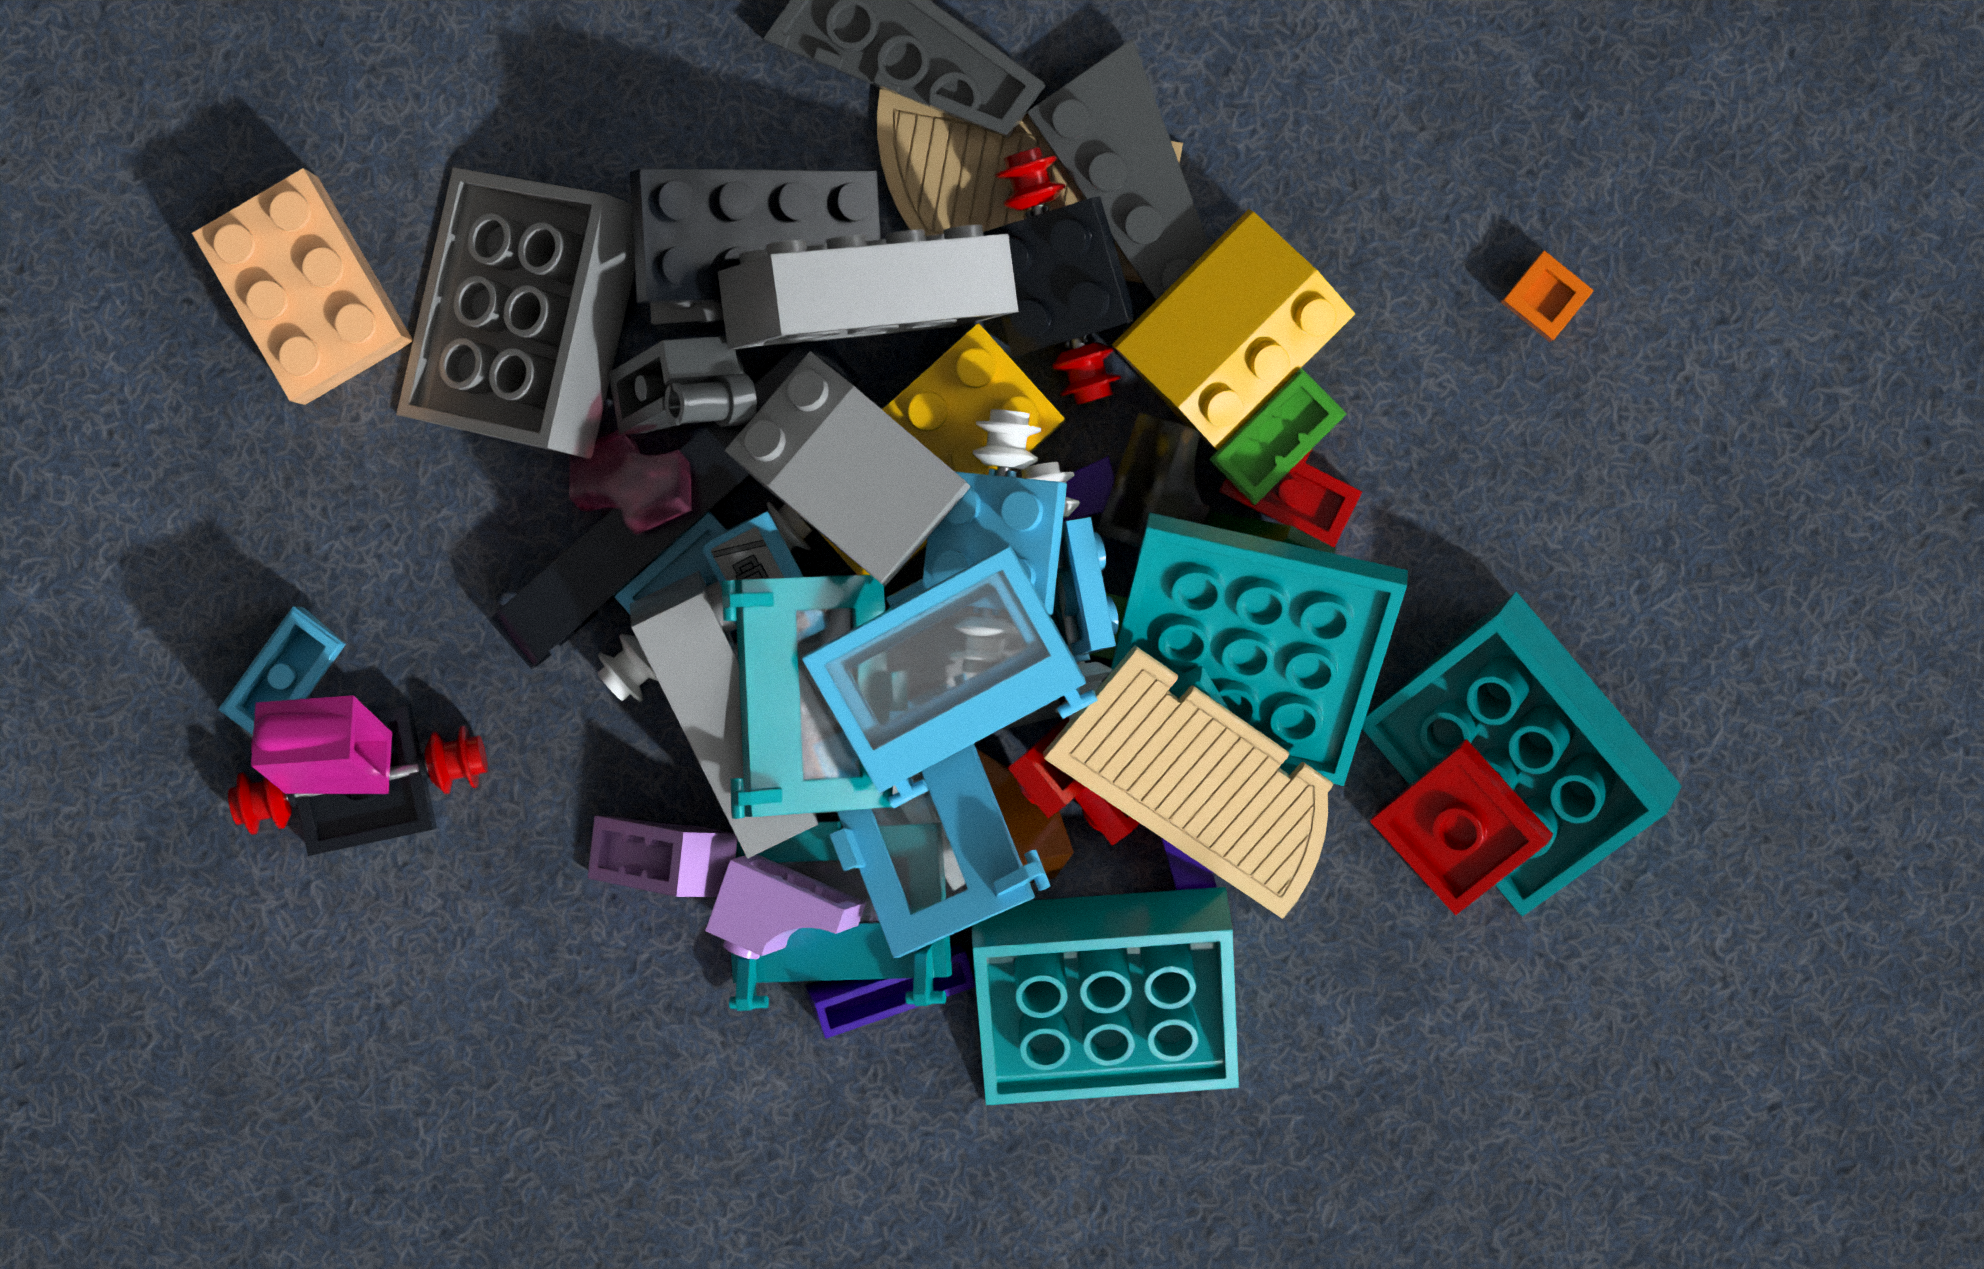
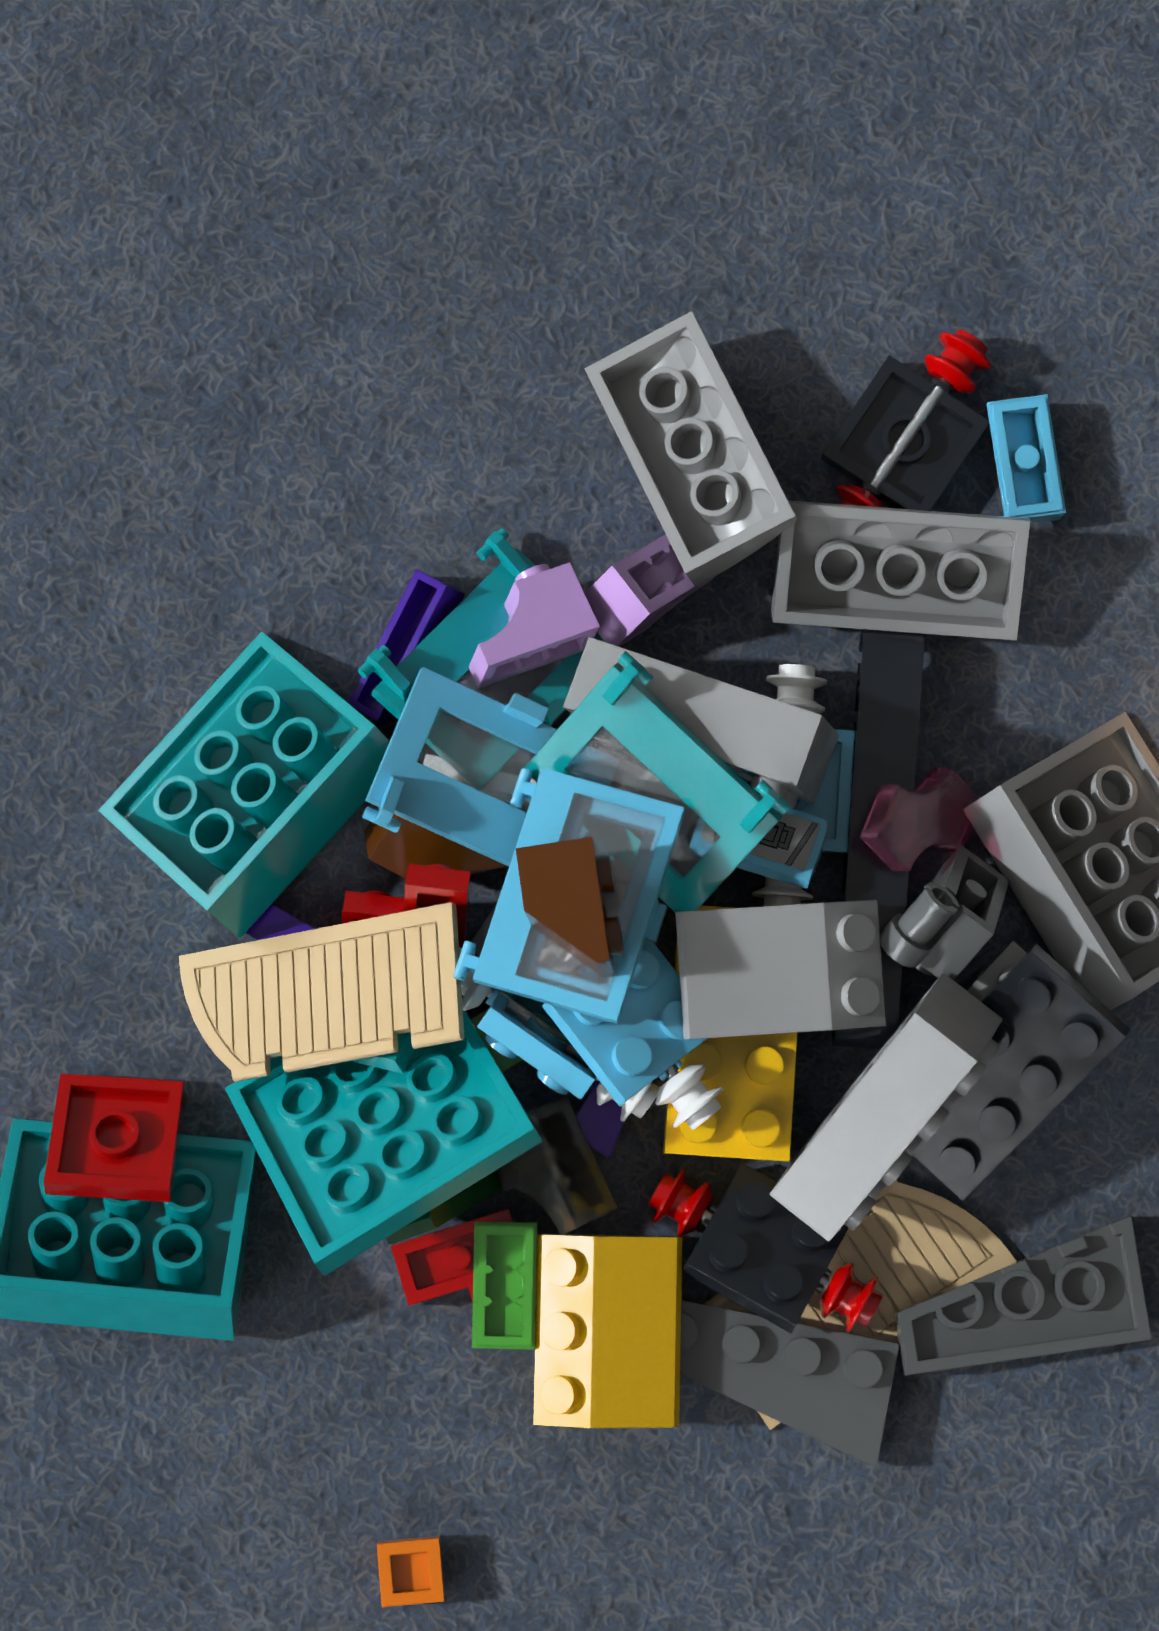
camera: 140 degrees right, 5 degrees down
(321, 746) = (952, 434): dark pink torso -> none
(461, 683) = (901, 570): none -> light grey slope
(527, 929) = (692, 448): none -> light grey slope
(958, 673) = (566, 900): none -> reddish brown slope

